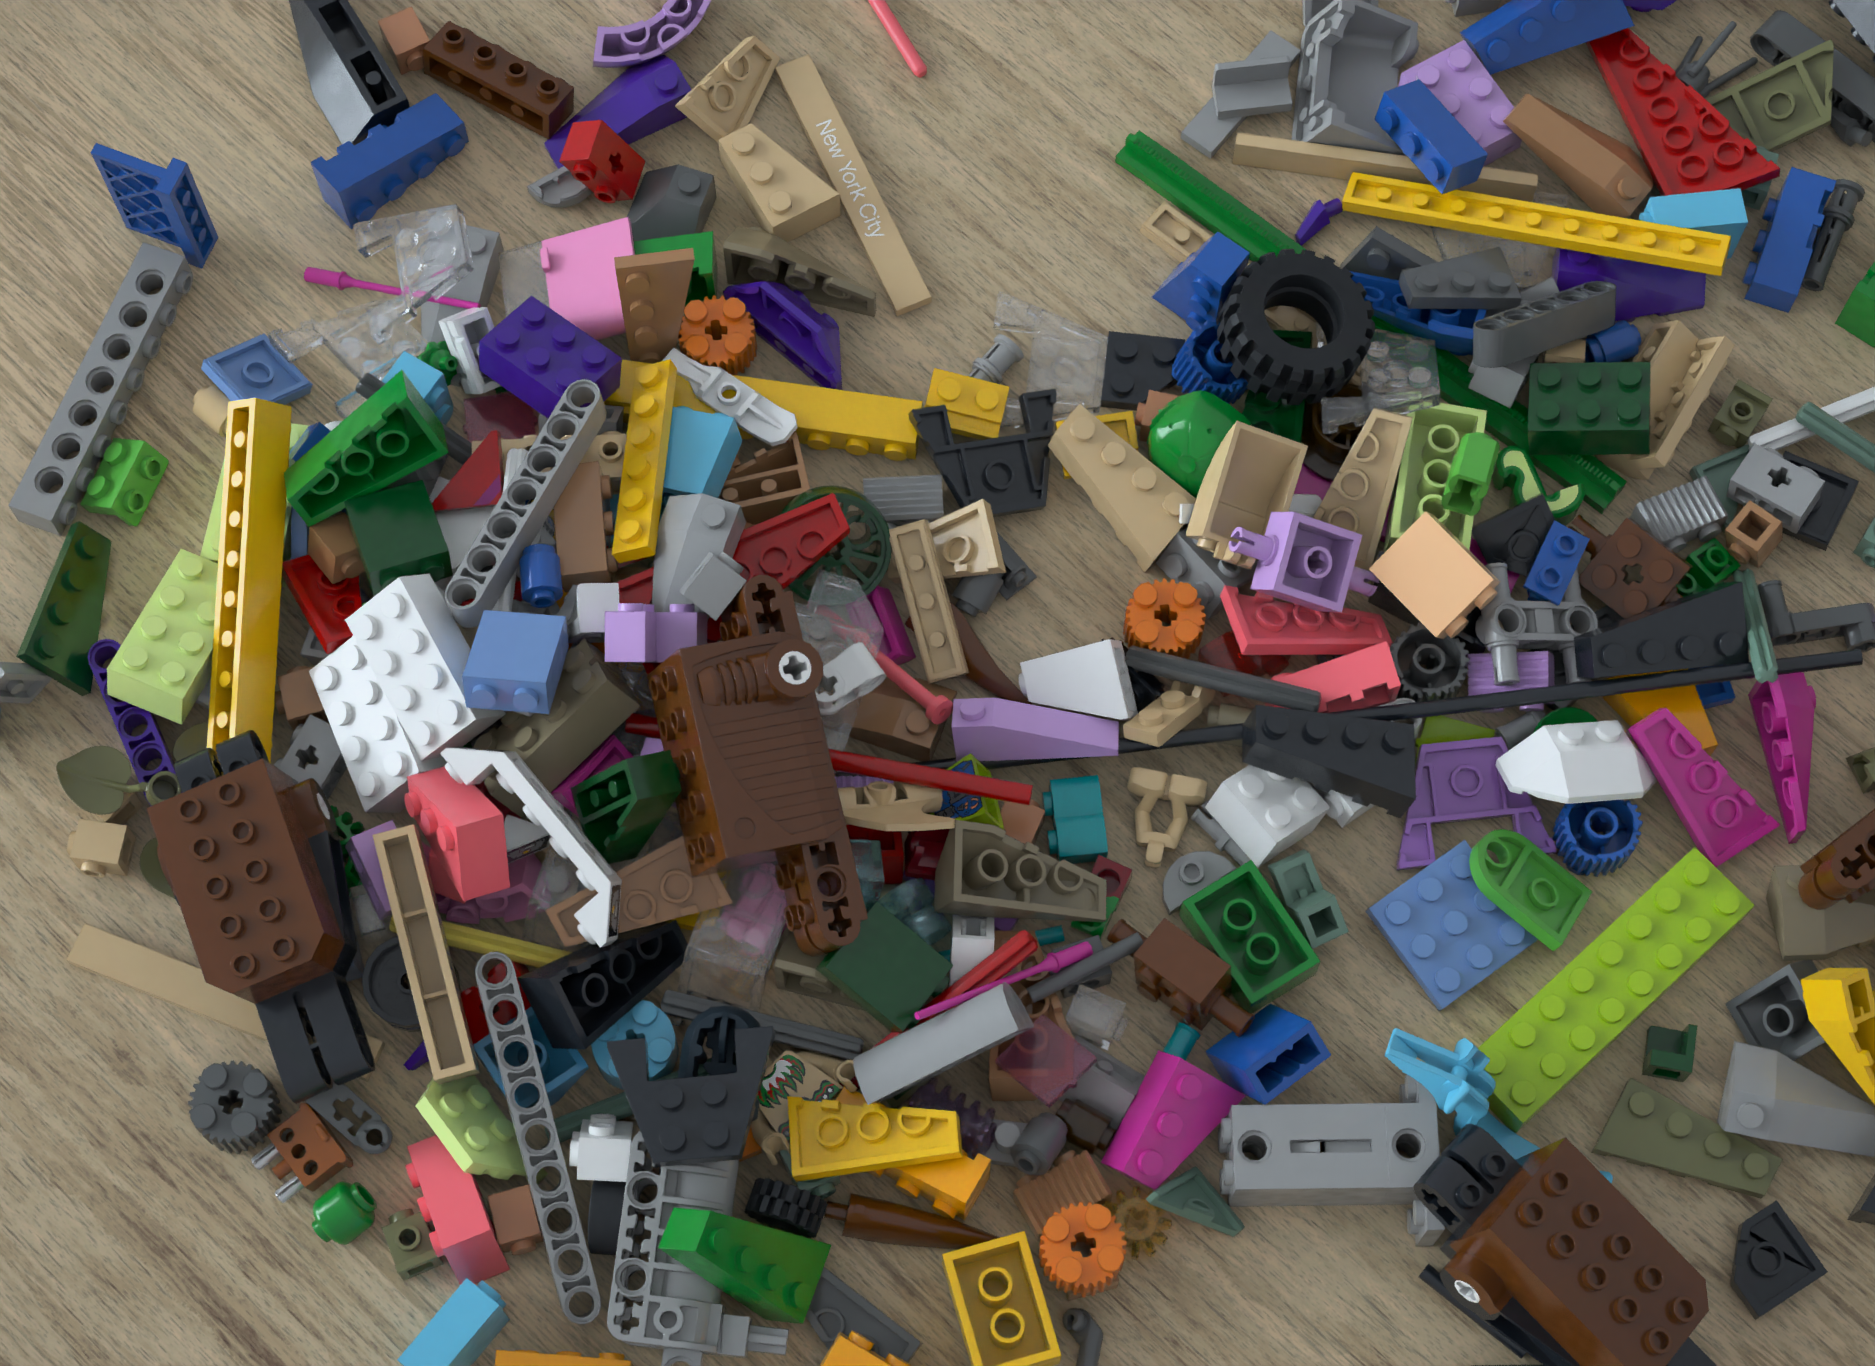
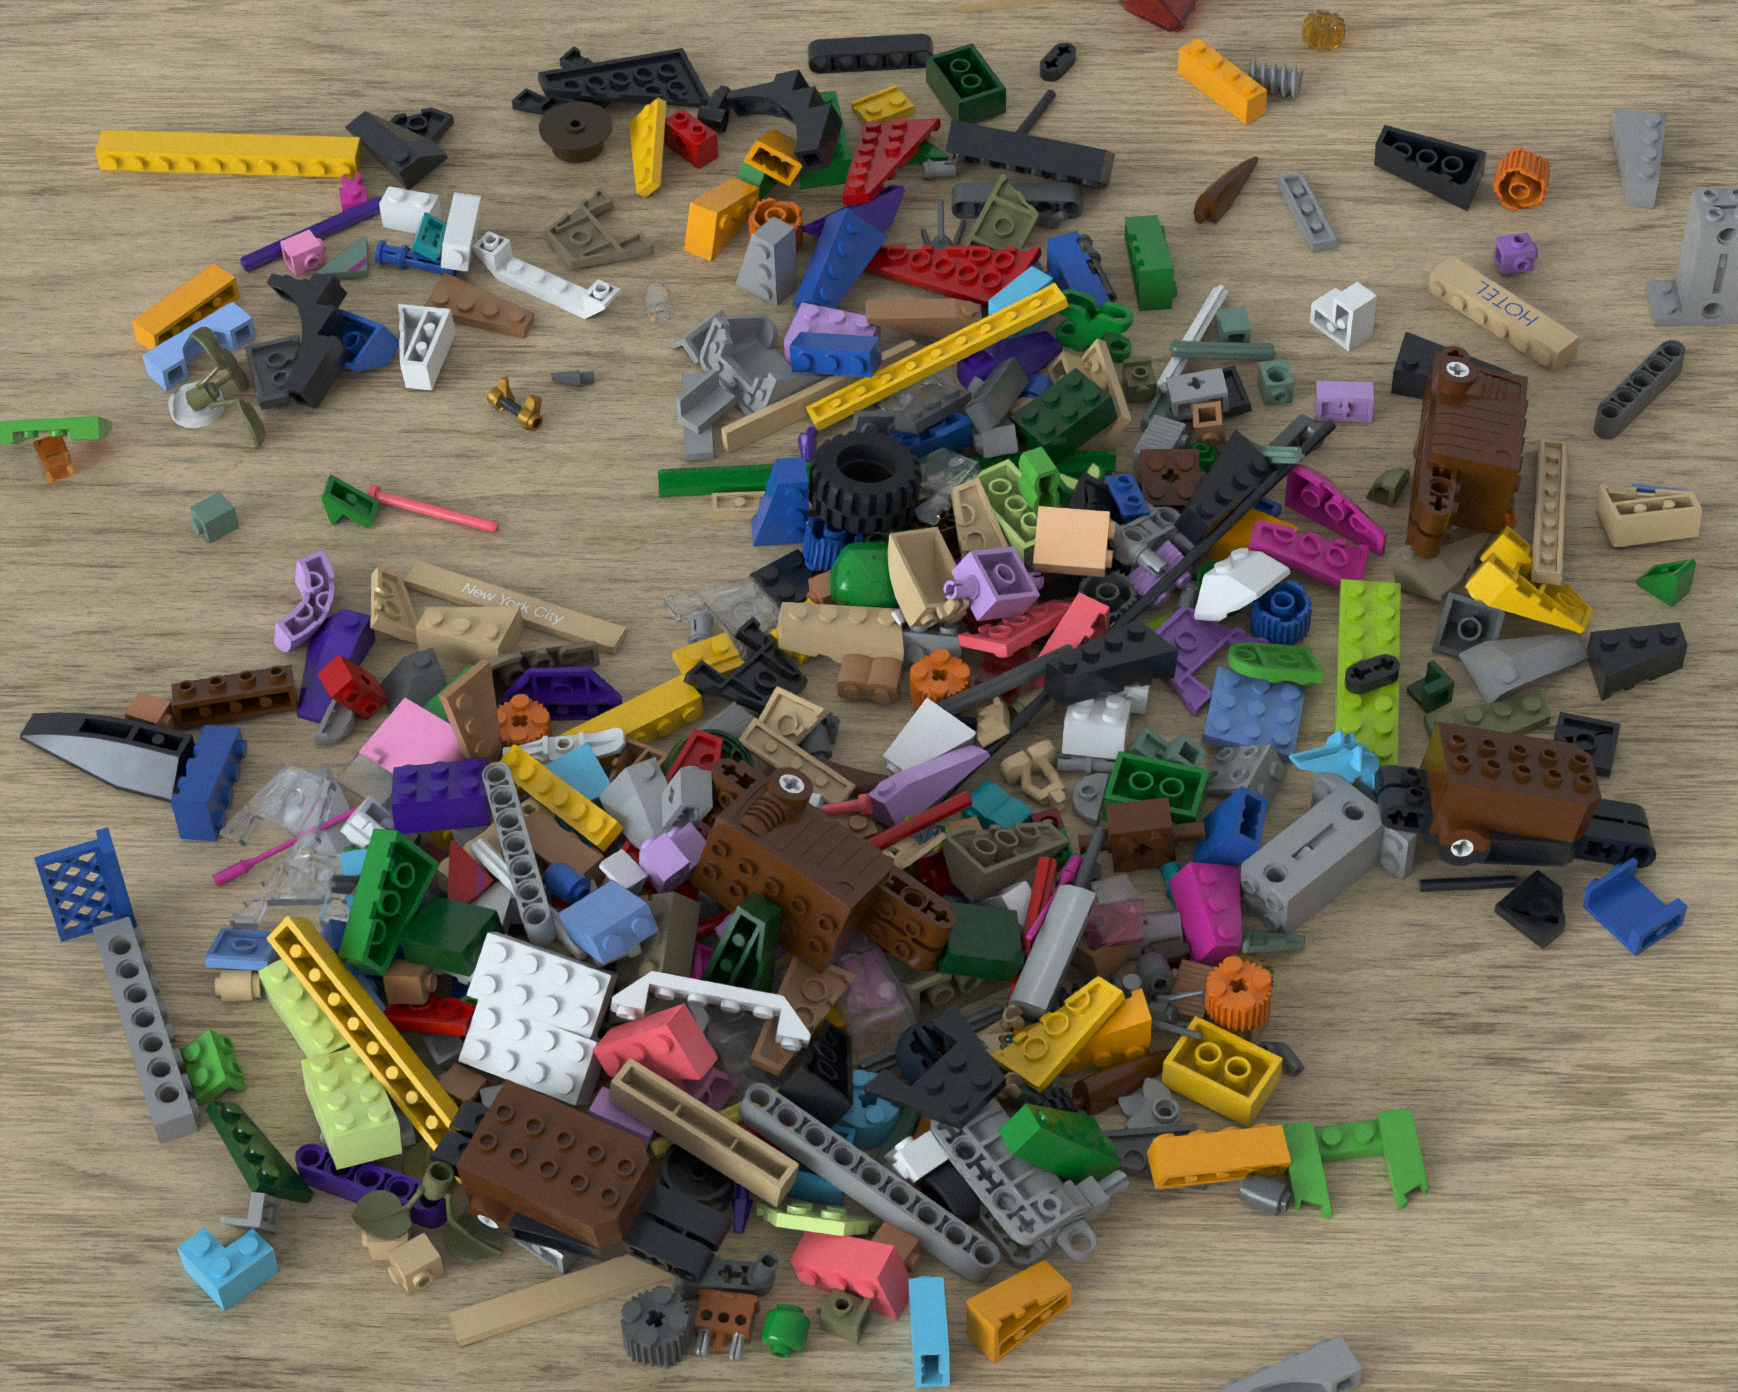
camera: 40 degrees left, 20 degrees down
(902, 1275) = (1147, 1108): none -> light grey plate
(1000, 1197) = (1166, 1016): none -> dark grey plant
(1106, 556) = (870, 678): none -> medium nougat brick
(1369, 989) = (1247, 766): none -> light grey bracket
(1604, 986) = (1372, 674): none -> black beam
(1750, 311) = (1092, 322): none -> green piece

